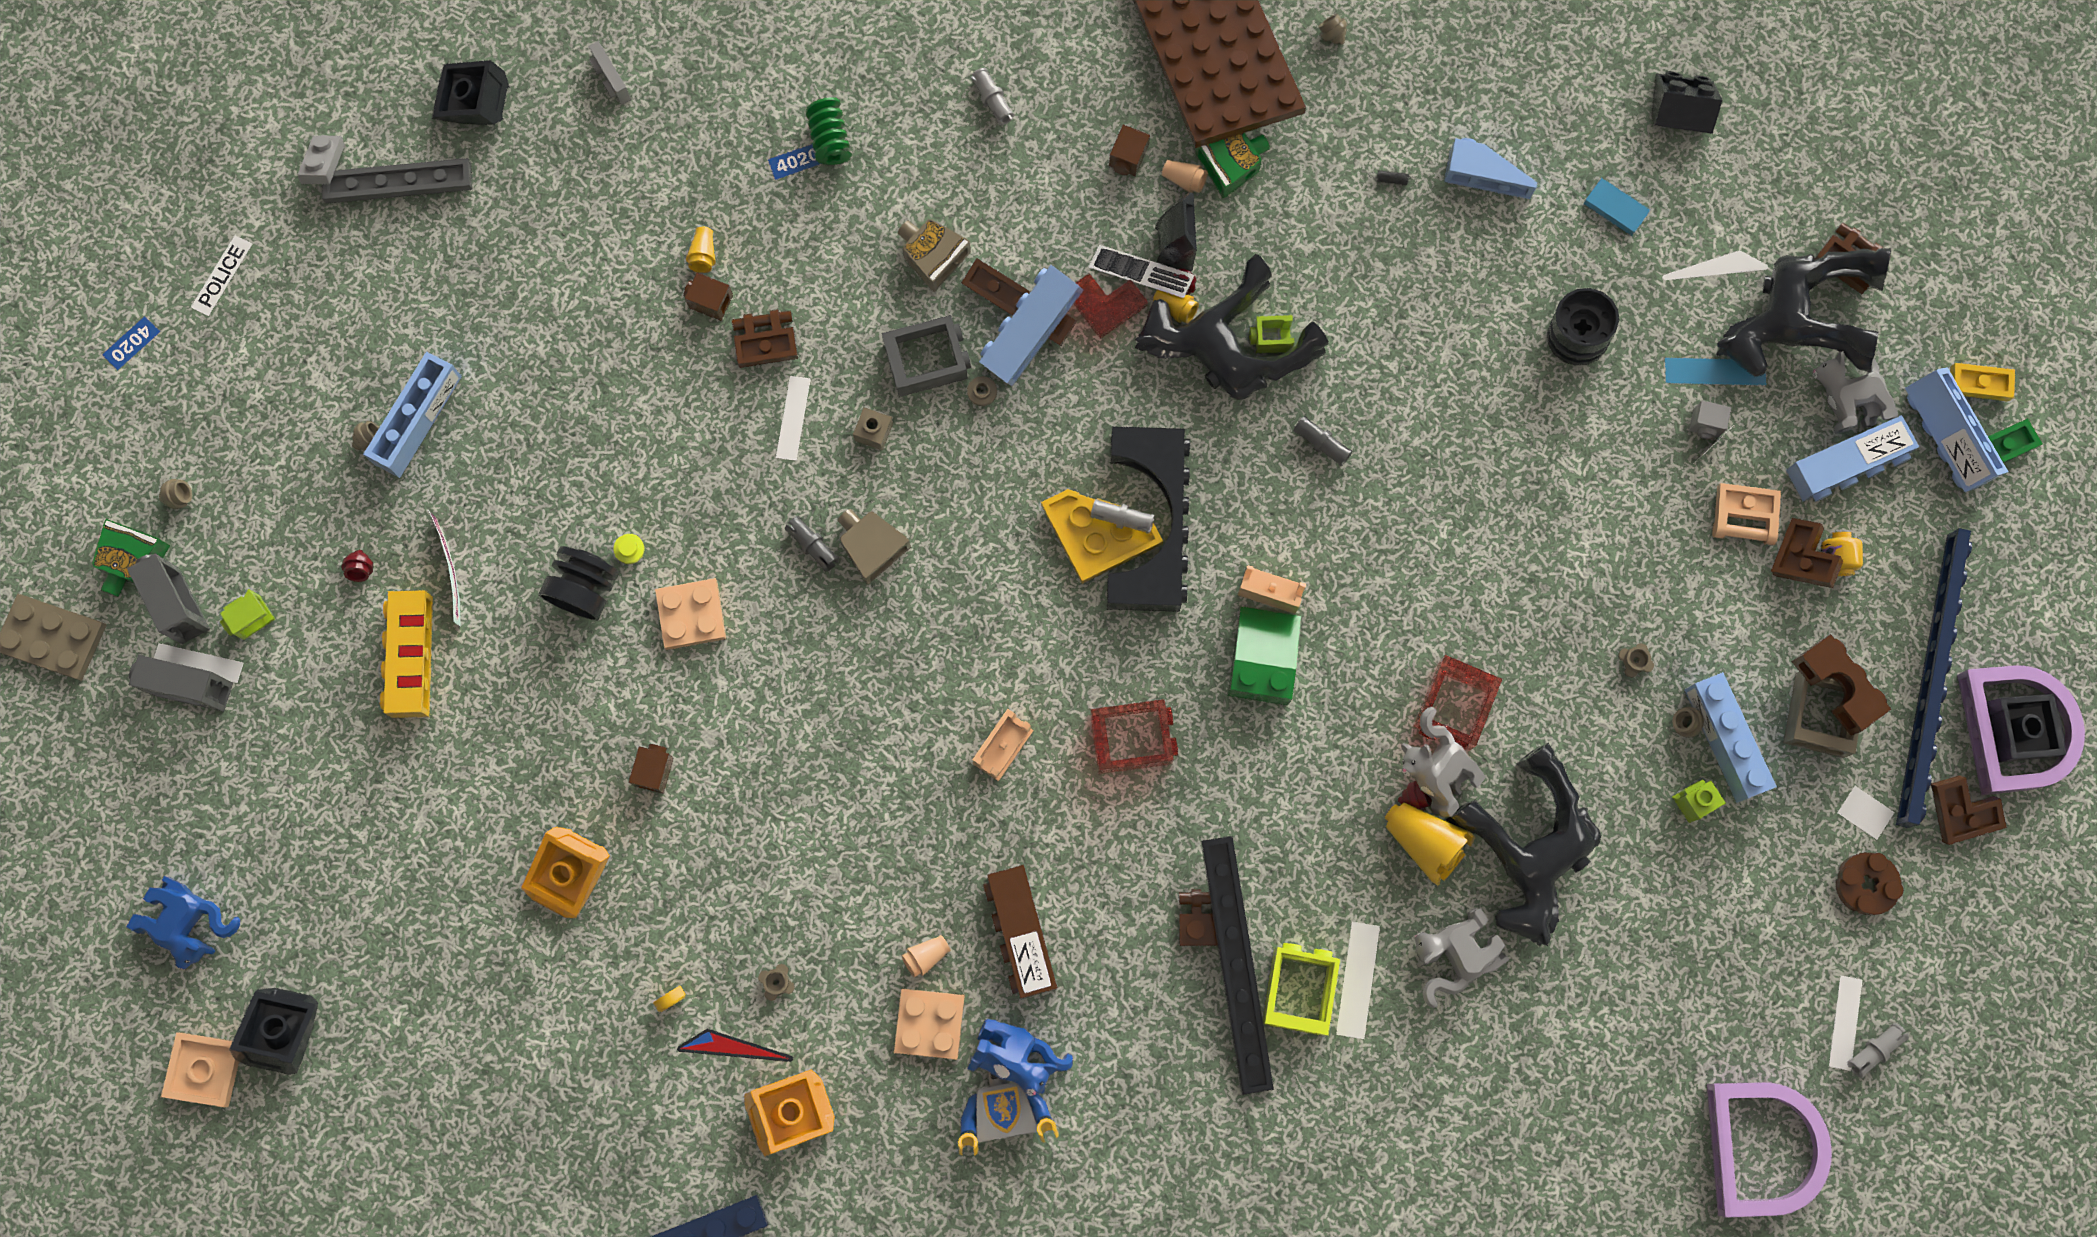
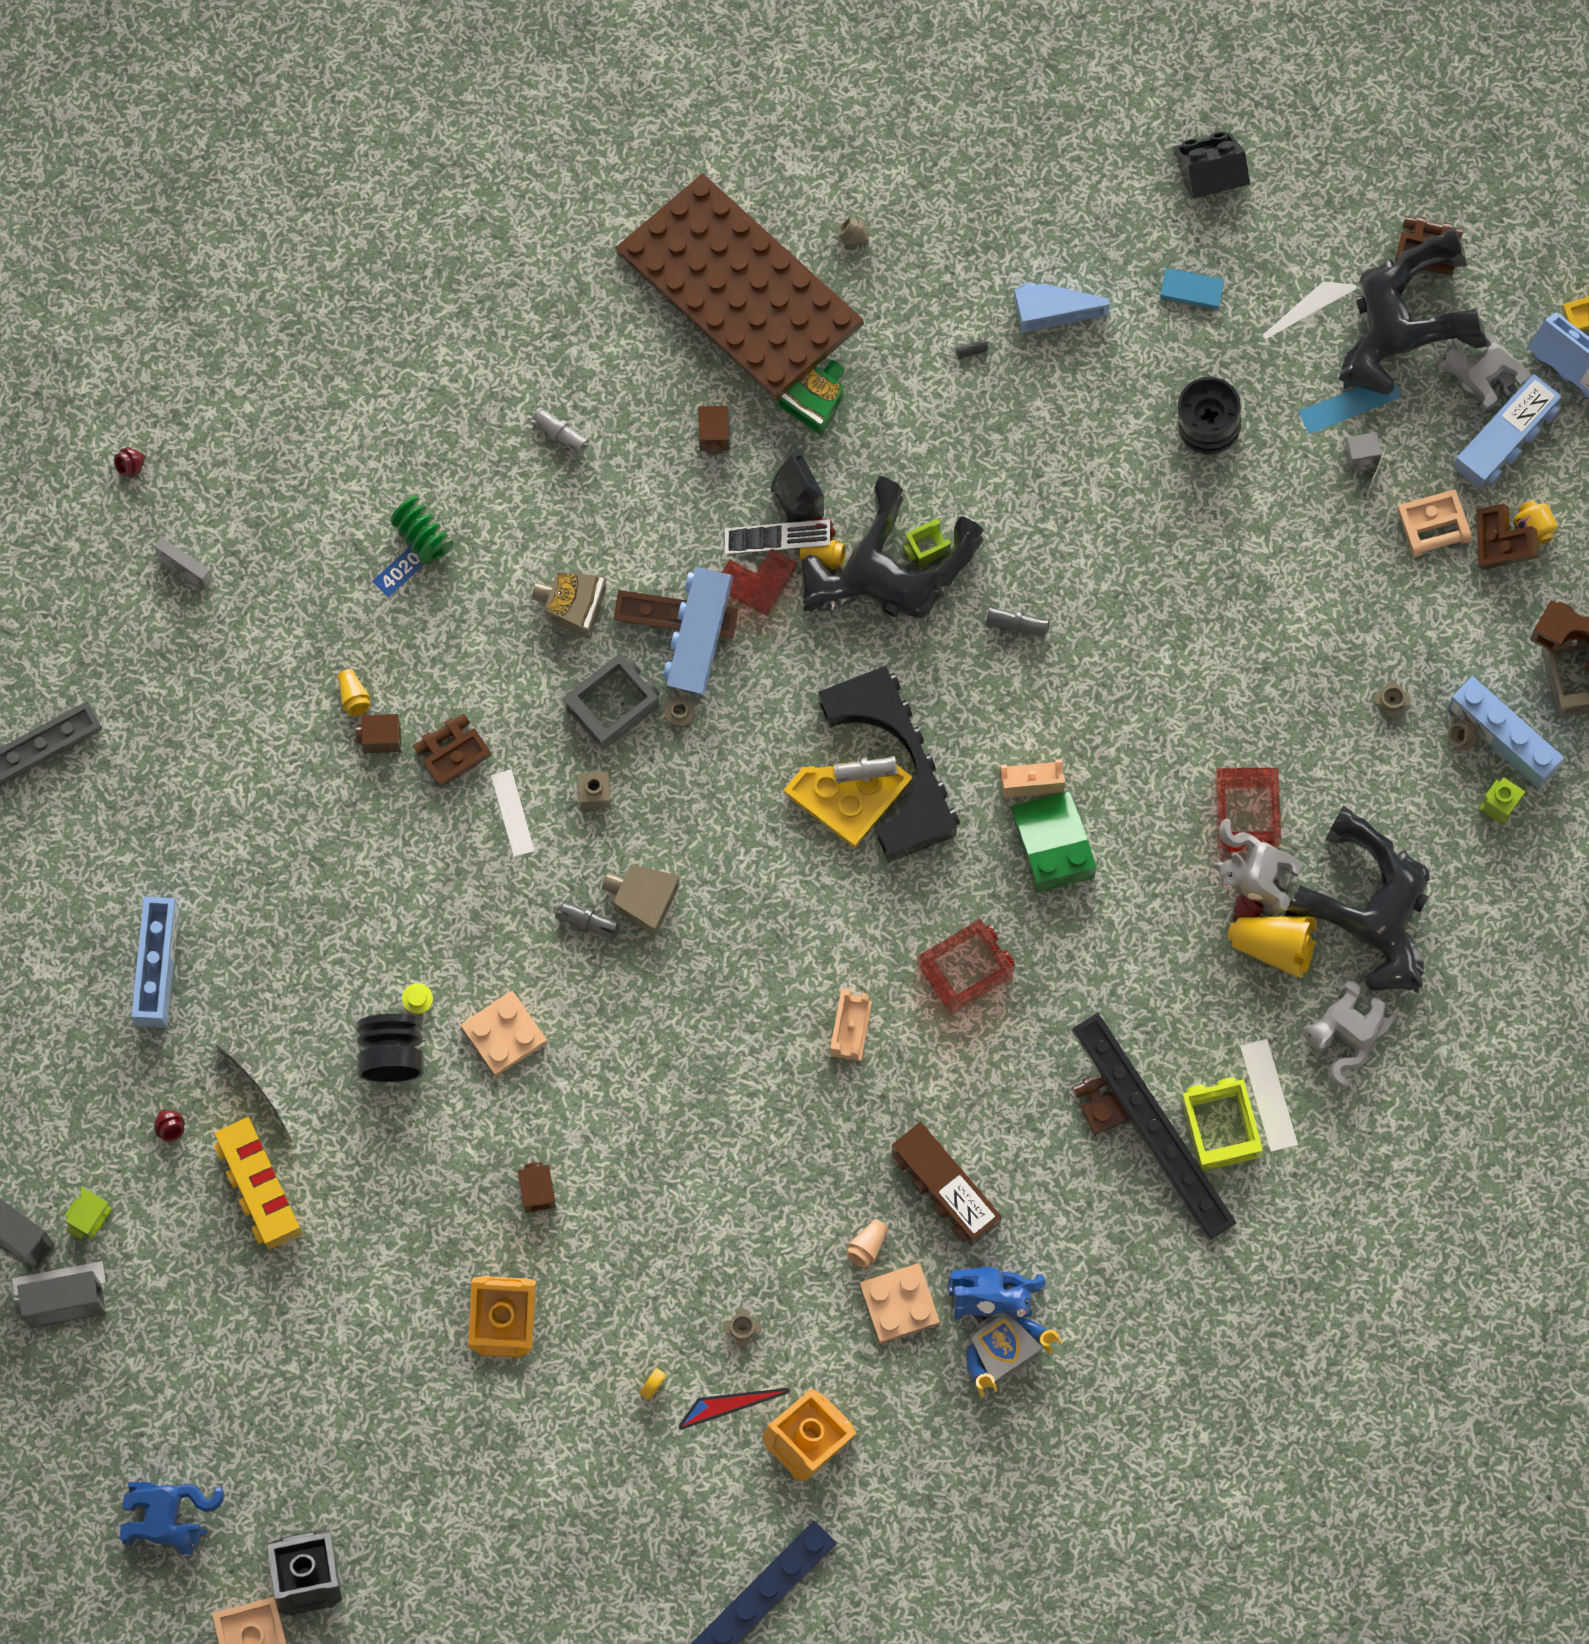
camera: 20 degrees left, 5 degrees down
(363, 435) = (117, 1003): dark tan plate -> none
(471, 93) = (57, 639): black slope -> none
(1186, 175) = (777, 429): light nougat cone -> none

